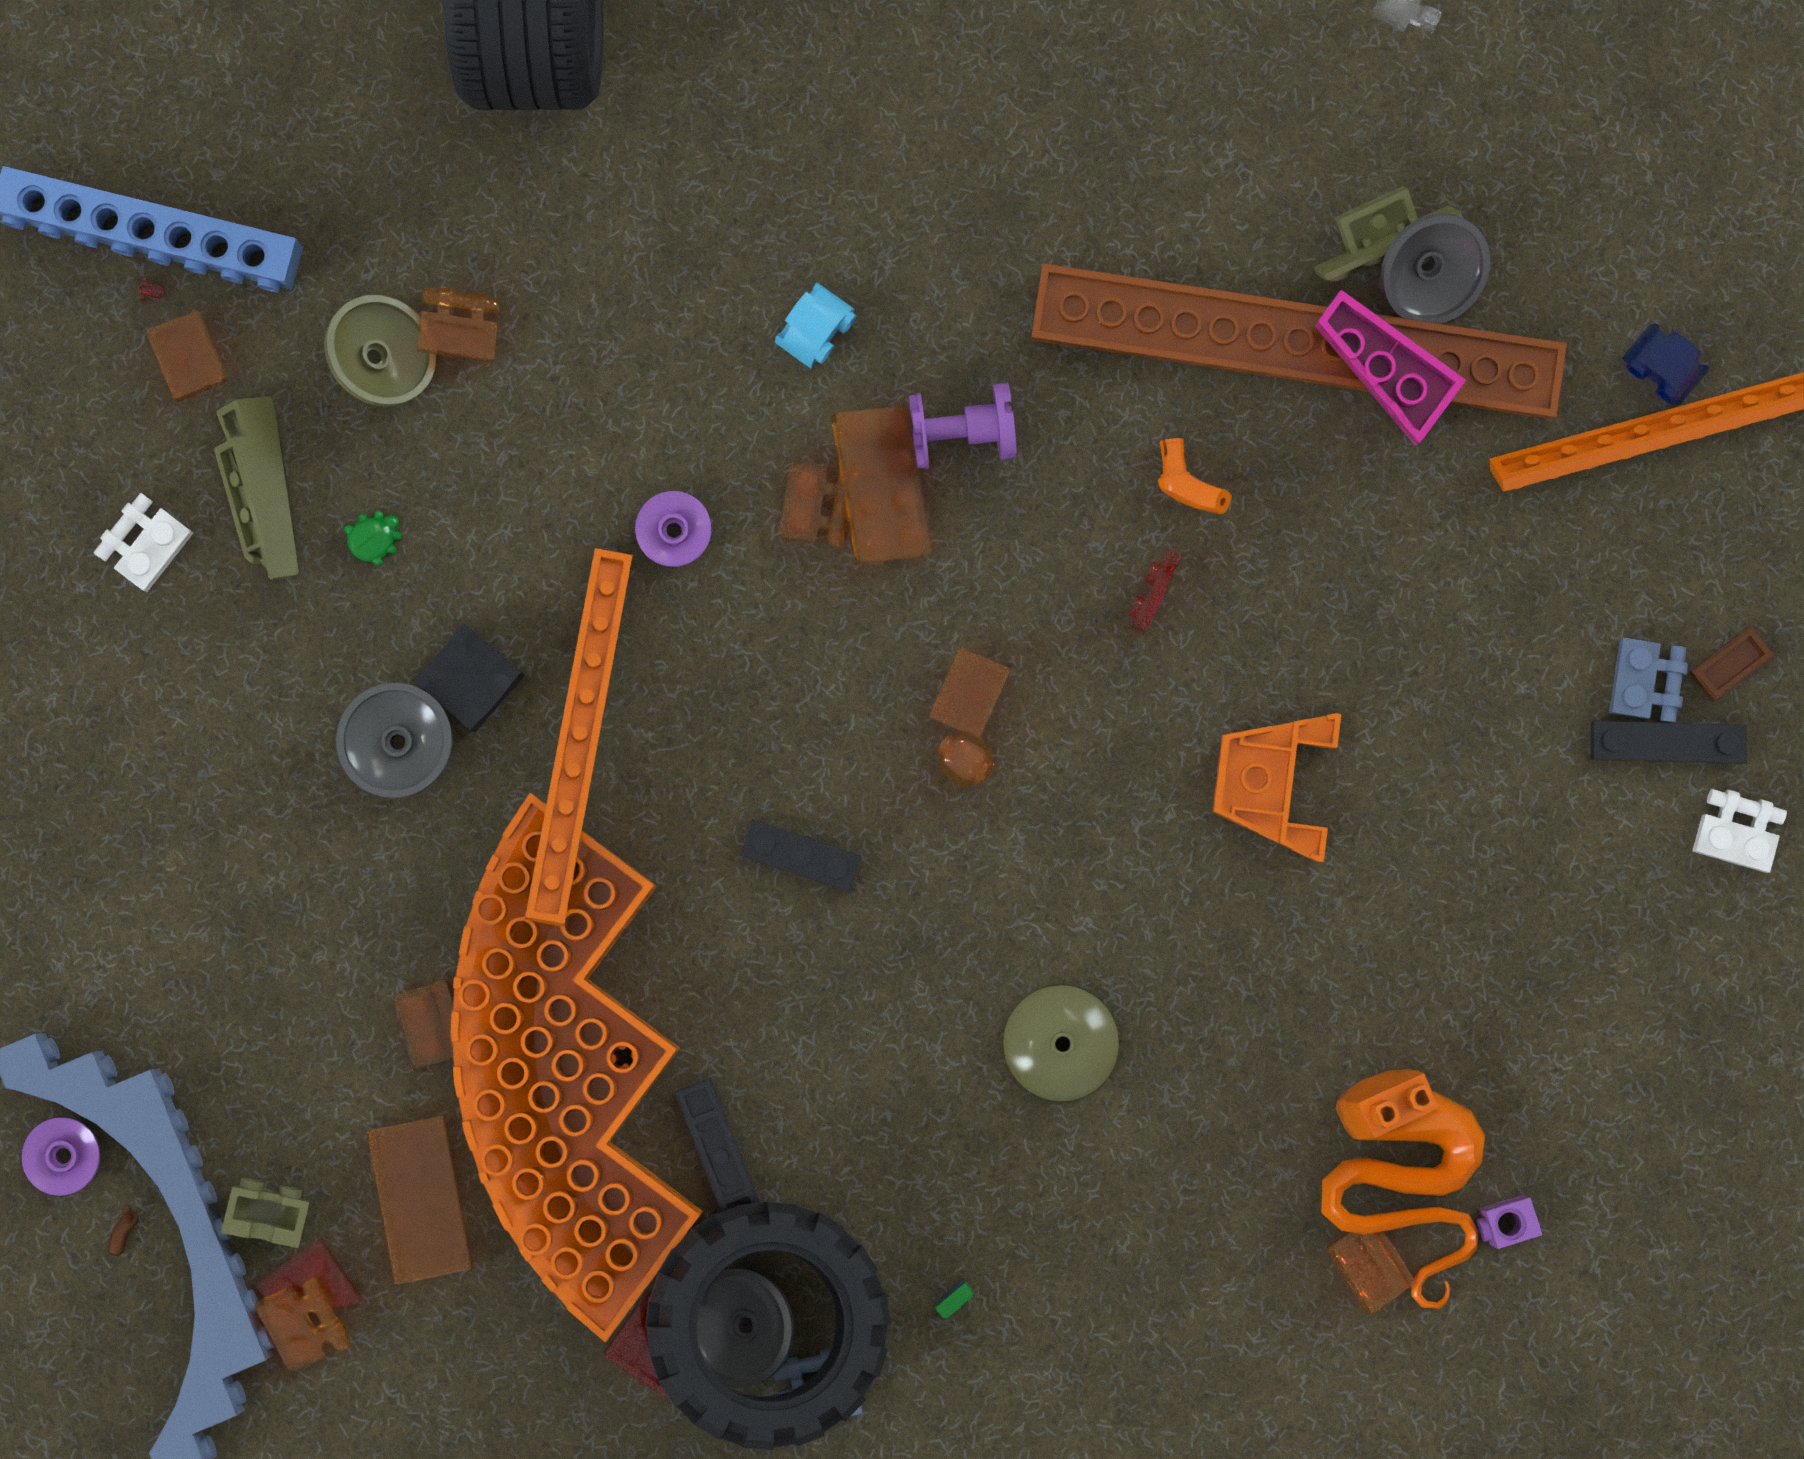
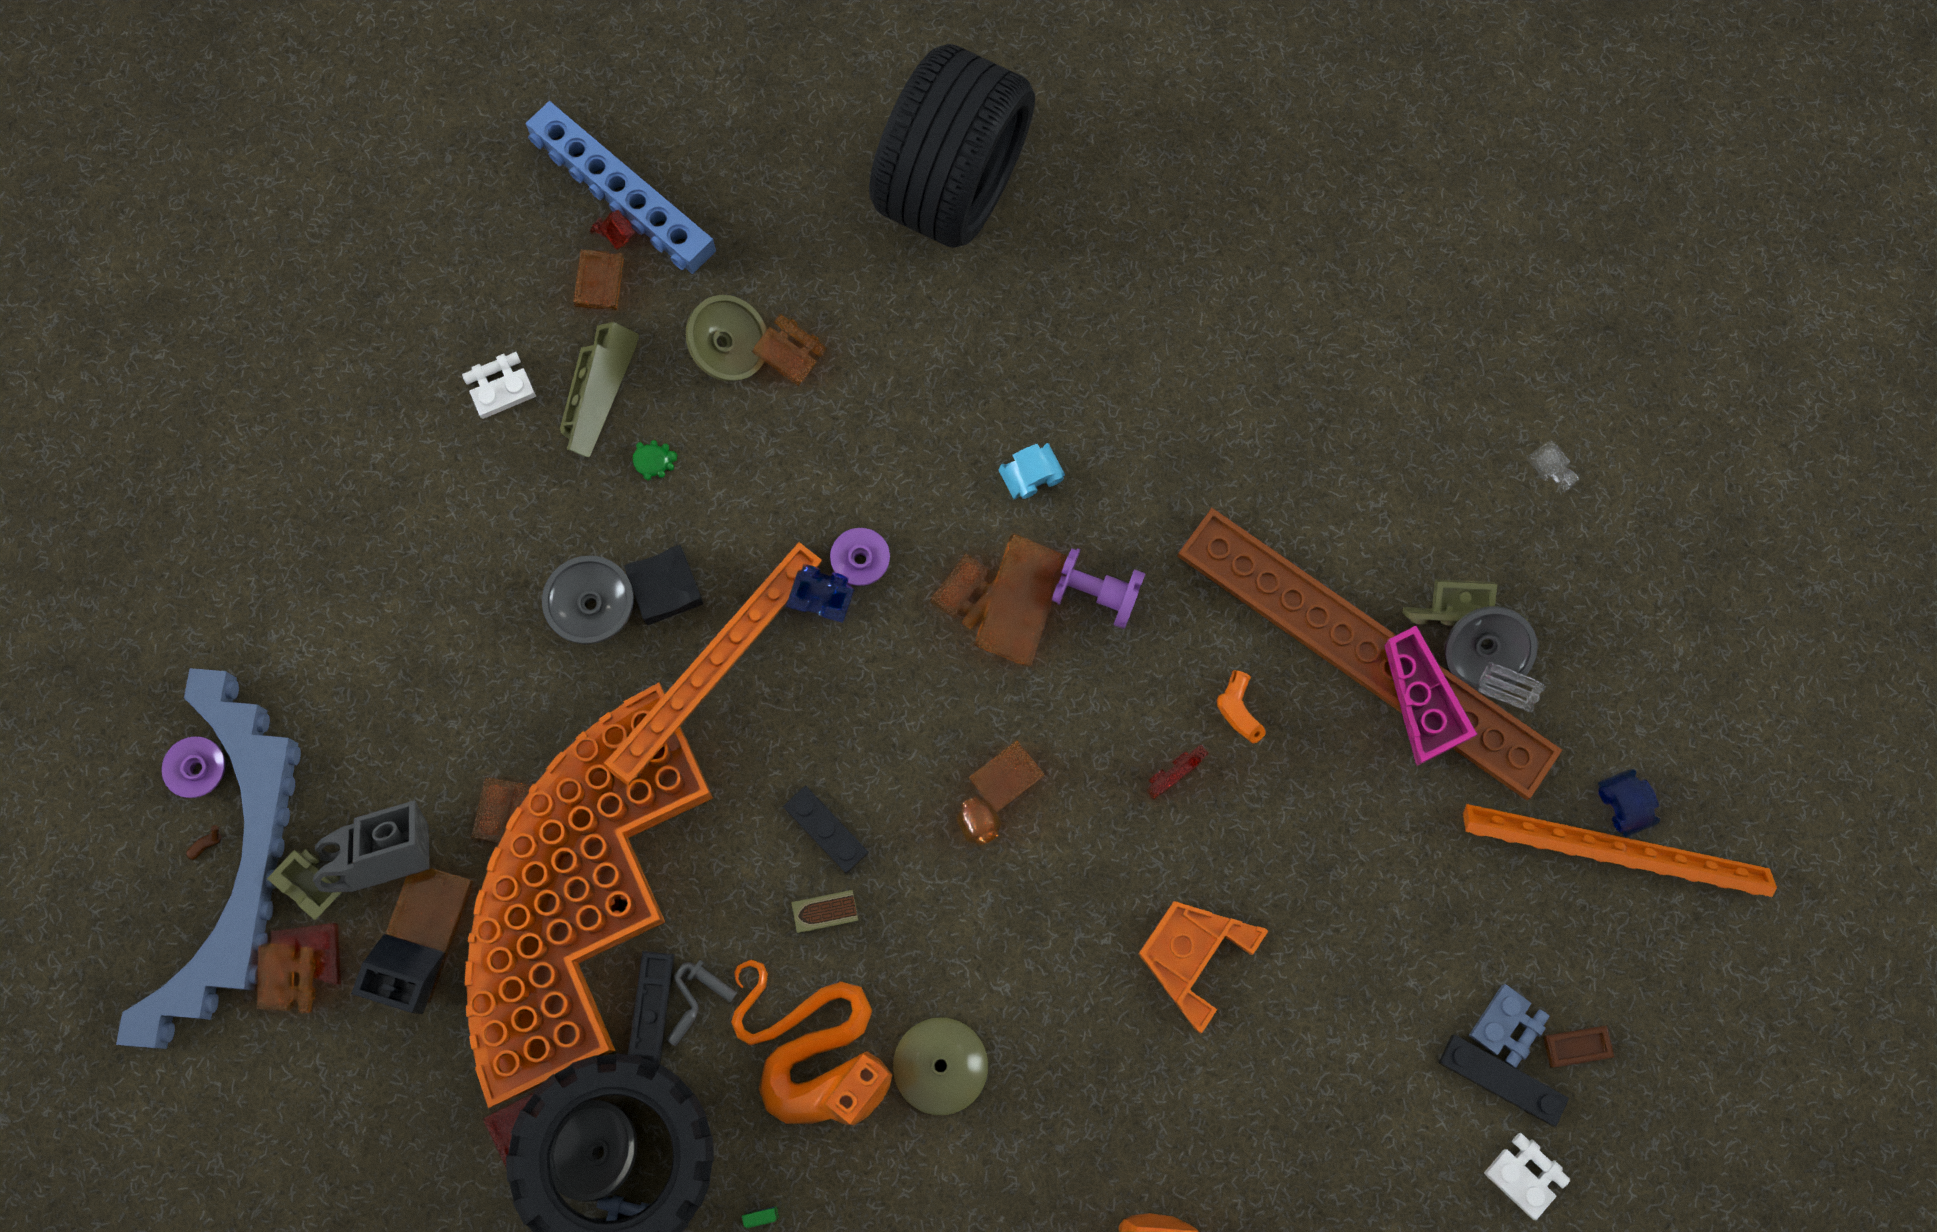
camera: 25 degrees right, 10 degrees down
(175, 283) = (617, 229): none -> clear red plate
(320, 1138) = (375, 849): none -> dark grey brick
(427, 1256) = (399, 974): none -> black slope
(653, 595) = (820, 593): none -> clear blue cylinder
(760, 1084) = (690, 1015): none -> dark grey piece
(848, 945) = (825, 911): none -> tile
(972, 1128) = (840, 1094): none -> orange hips
(1476, 314) = (1532, 696): none -> clear tile

